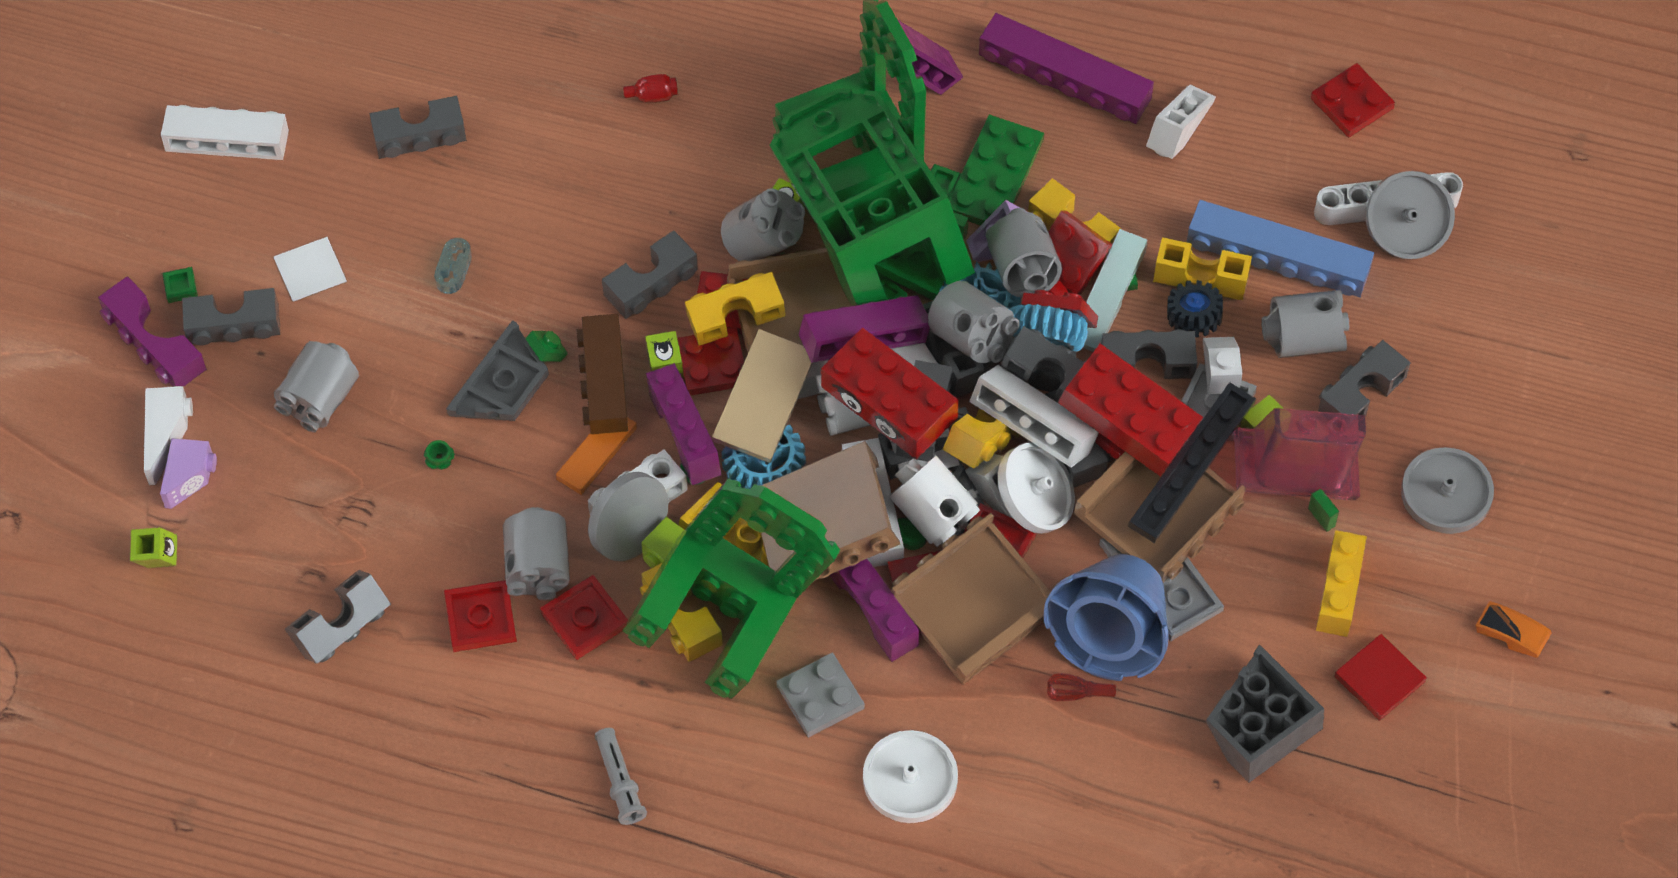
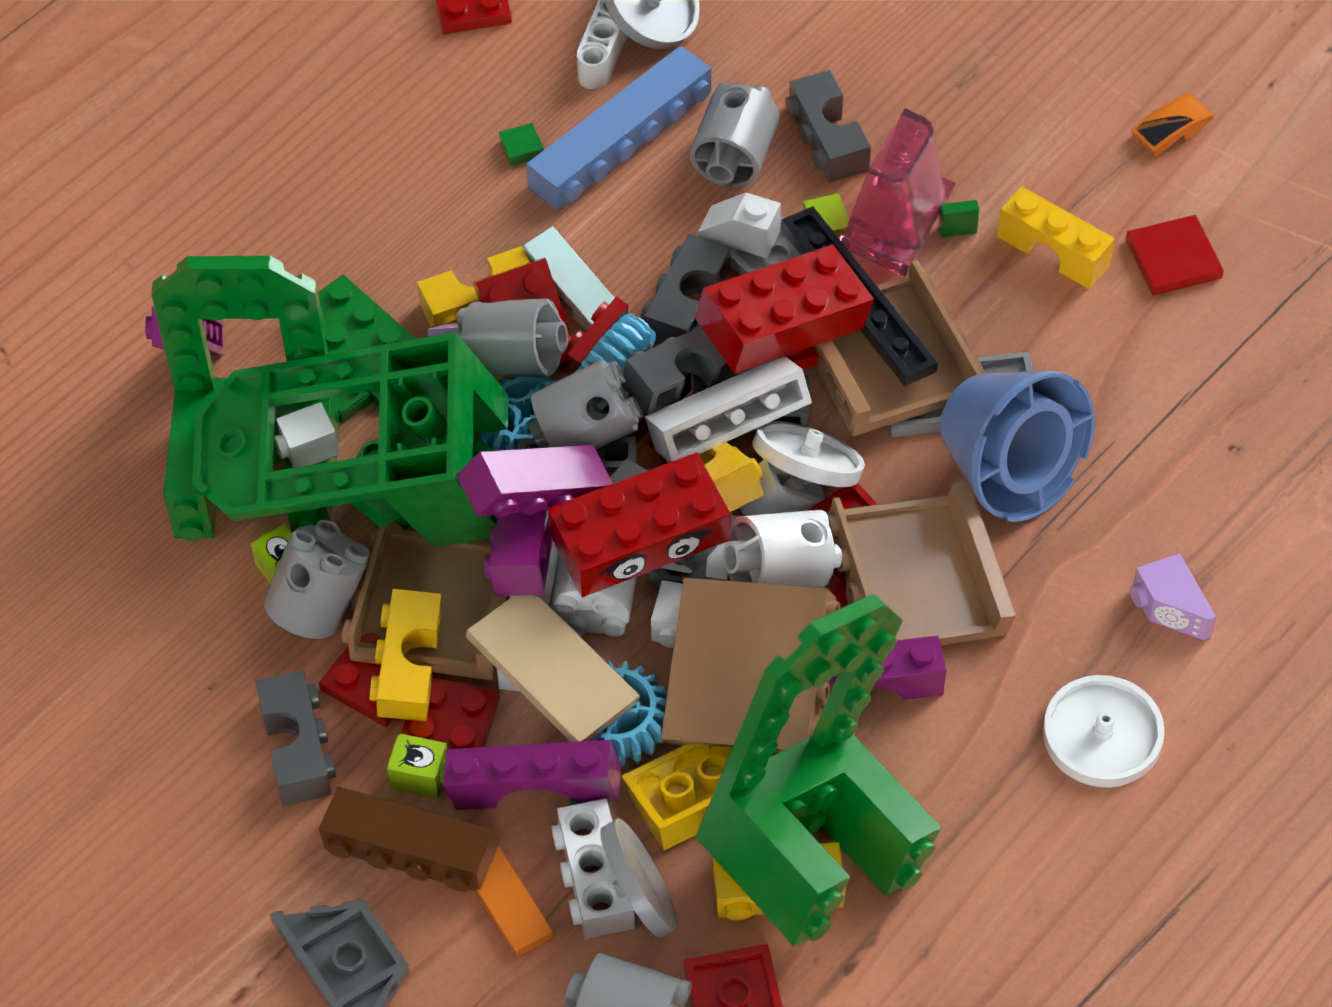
camera: 65 degrees left, 5 degrees down
(447, 264) = (147, 951): clear light blue beam -> none
(546, 346) = (328, 889): green plate -> none
(653, 88) = (29, 633): red plant -> none
(660, 541) = (682, 864): lime brick -> none
(820, 695) = (957, 780): light grey plate -> none
(857, 162) = (306, 436): none -> white brick
(878, 308) = (531, 478): none -> brick
(1047, 779) = (1172, 597): none -> lavender slope
(1065, 68) = (284, 211): magenta brick -> none
(1088, 688) = (1072, 513): clear red piece -> none
(1178, 264) = (595, 217): yellow arch -> none
(1179, 121) = (410, 148): white slope -> none
(1195, 308) = (653, 227): black wheel -> none
(1230, 192) = (520, 143): none -> green tile
(1263, 716) = (1188, 362): dark grey wedge -> none
(1447, 490) = (982, 112): light grey piece -> none

